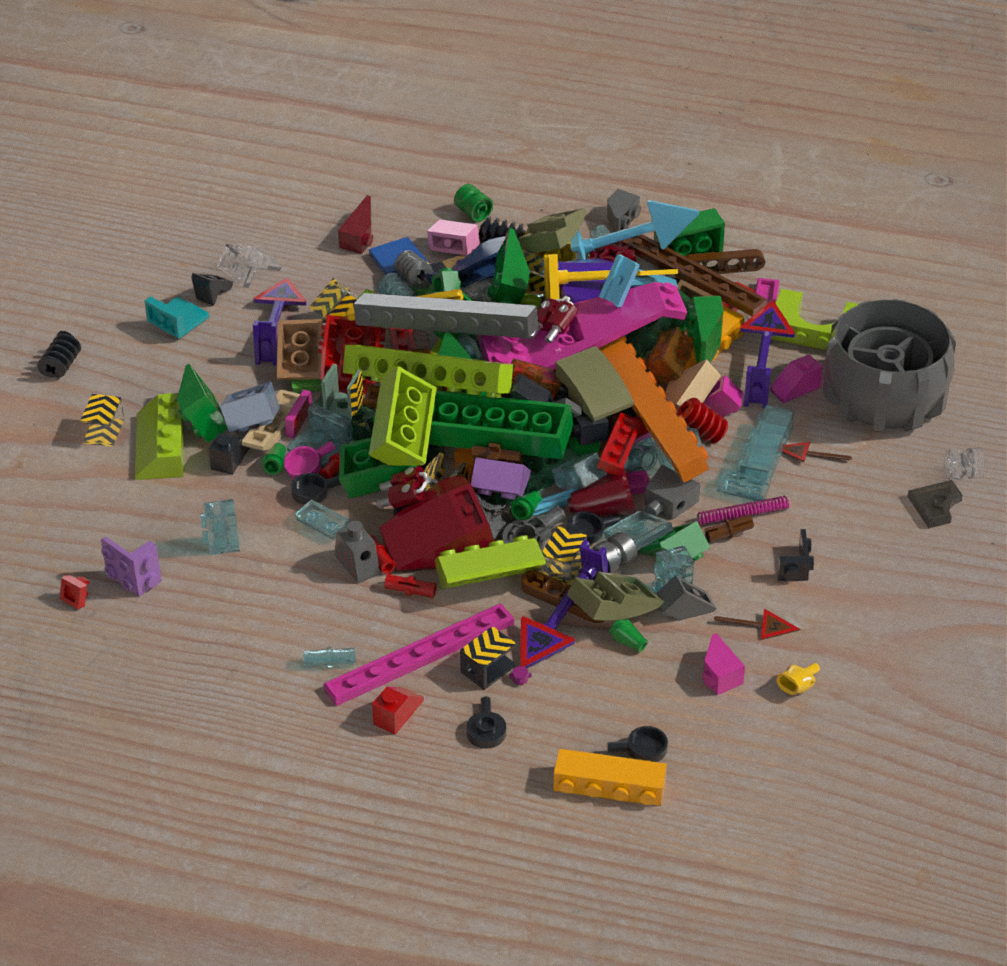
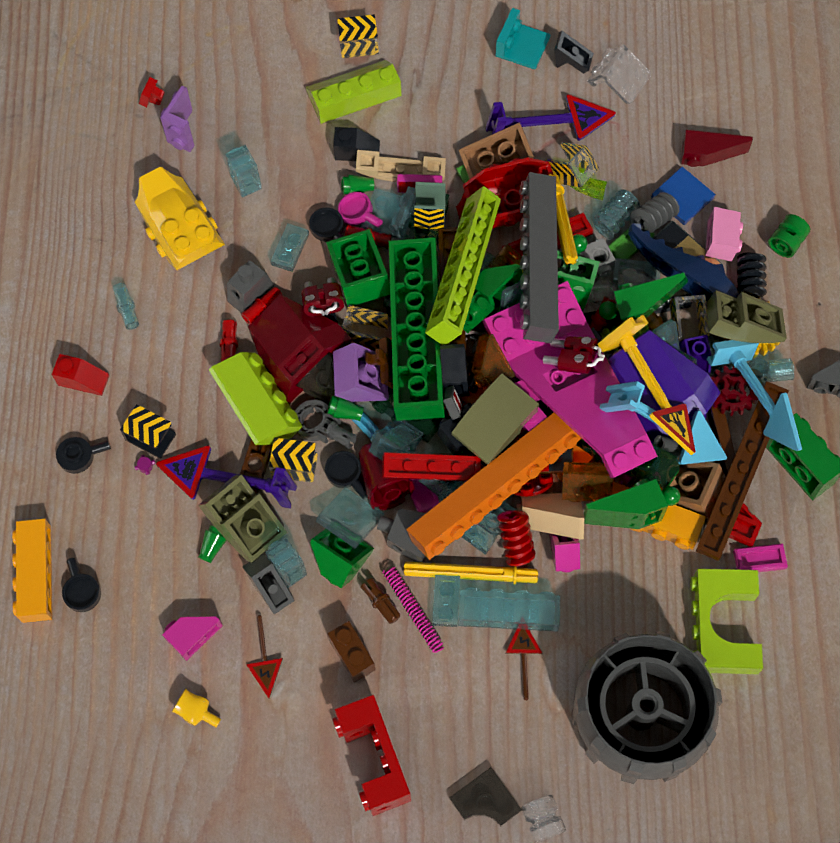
camera: 75 degrees right, 25 degrees up
(200, 406) = (395, 100): green slope -> none
(250, 407) = (399, 140): sand blue brick -> none
(258, 592) = (175, 218): none -> yellow slope
(402, 419) = (380, 265): lime slope -> none
(415, 655) = (153, 377): dark pink tile -> none
(445, 280) = (624, 249): green brick -> none
(620, 550) = (306, 501): flat silver wheel -> none
(723, 258) = (792, 502): reddish brown beam -> none
(731, 439) = (472, 572): none -> yellow axle
(765, 551) = (351, 651): none -> reddish brown brick
(768, 322) = (689, 570): dark purple piece -> none
(797, 567) = (352, 685): black bracket -> none
(798, 379) = (623, 617): dark pink slope -> none
(905, 541) = (362, 719): none -> red plate

